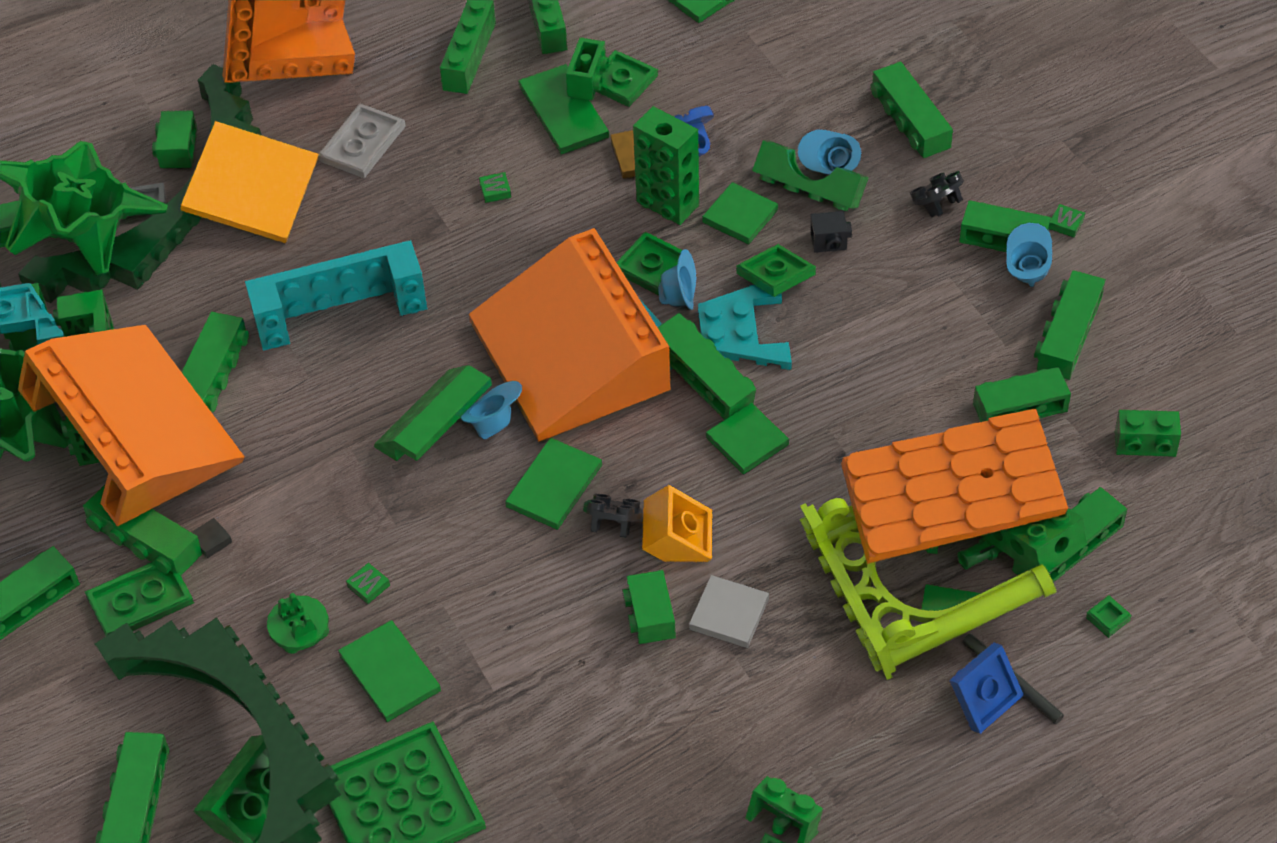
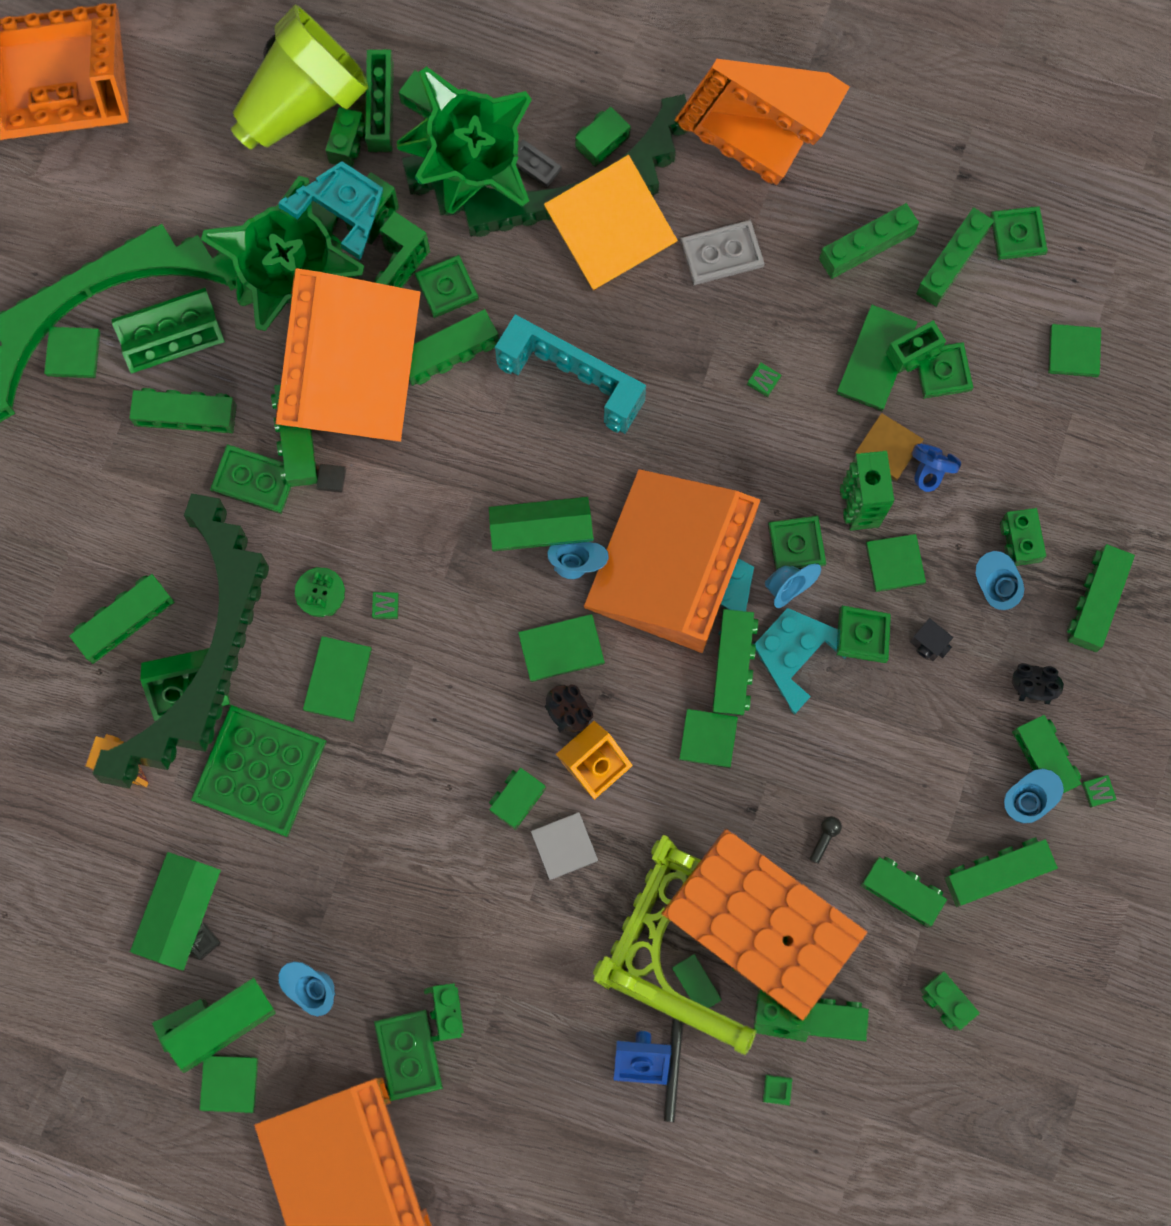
camera: 45 degrees right, 25 degrees up
(167, 326) = (446, 286): none -> green tile
(780, 164) = (957, 556): green arch -> none
(808, 114) = (1023, 536): none -> green brick
(914, 409) = (830, 827): none -> pearl dark grey bar

